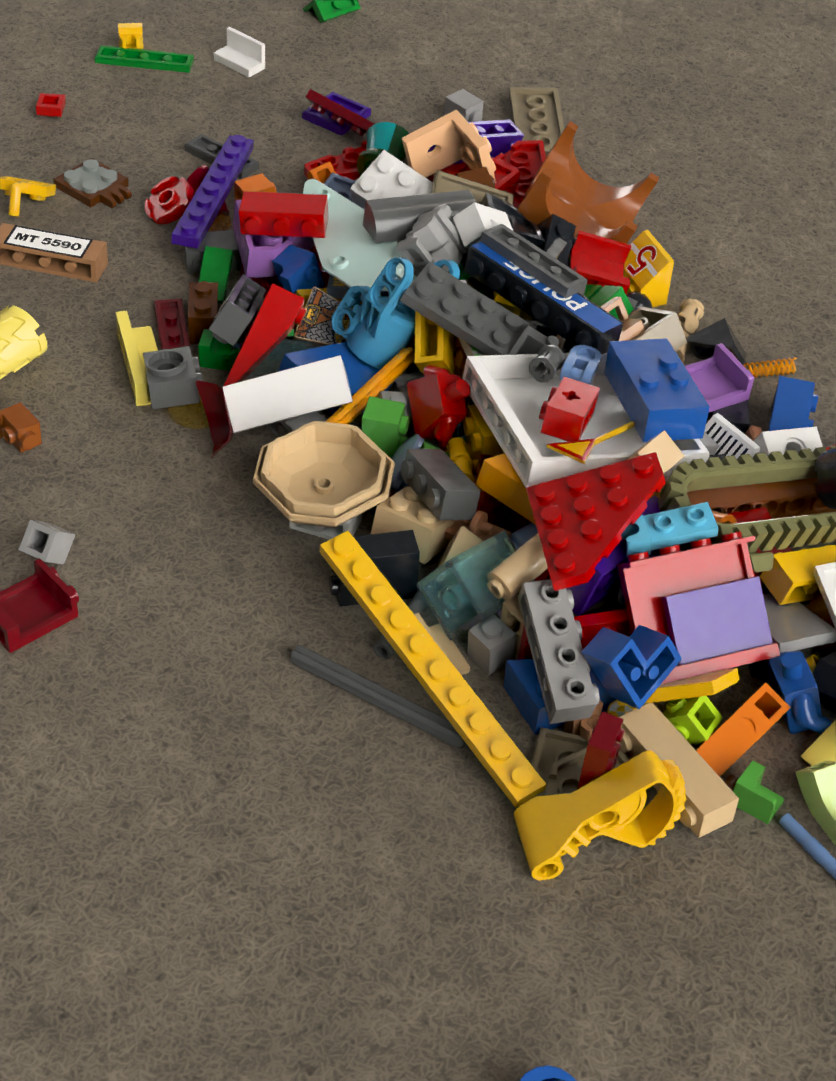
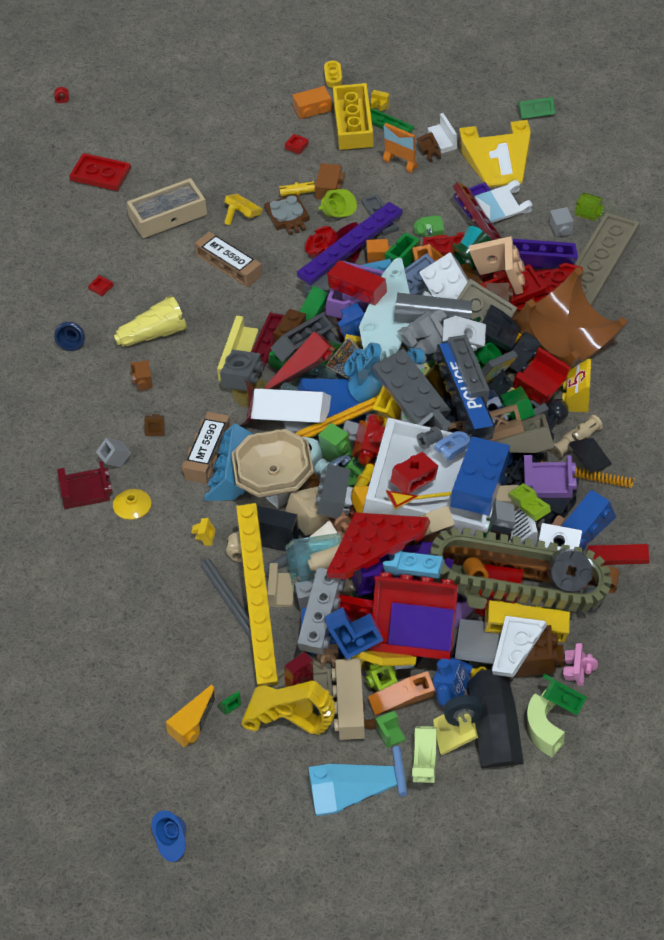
camera: 35 degrees right, 5 degrees up
(40, 56) = (312, 102): none -> orange brick
(45, 23) = (333, 73): none -> yellow plate
(85, 488) = (154, 425): none -> reddish brown tile
(88, 151) = (297, 188): none -> yellow pin
(111, 56) = (353, 116): none -> yellow brick
(117, 610) = (132, 509): none -> yellow dish
(128, 134) = (329, 178): none -> dark orange brick
(158, 154) = (338, 203): none -> lime piece
(187, 494) = (205, 448): none -> brick
(204, 65) = (400, 144): none -> orange flag
(231, 68) = (429, 146): none -> reddish brown plate
(247, 517) = (223, 482): none -> dark azure wedge
(264, 610) = (204, 531): none -> yellow tile
(292, 176) = (403, 249): none -> green piece
(302, 150) = (429, 226): none -> bright green rock
(325, 61) = (497, 157): none -> yellow wedge
(335, 612) = (234, 547): none -> tan head
(373, 106) = (500, 203): none -> white flag
(450, 901) = (189, 721): none -> light orange slope
(485, 85) = (589, 206): none -> clear neon green brick
(487, 847) = (230, 703): none -> green slope
(729, 416) = (528, 502): none -> lime slope
(760, 906) = (344, 784): none -> medium azure wedge

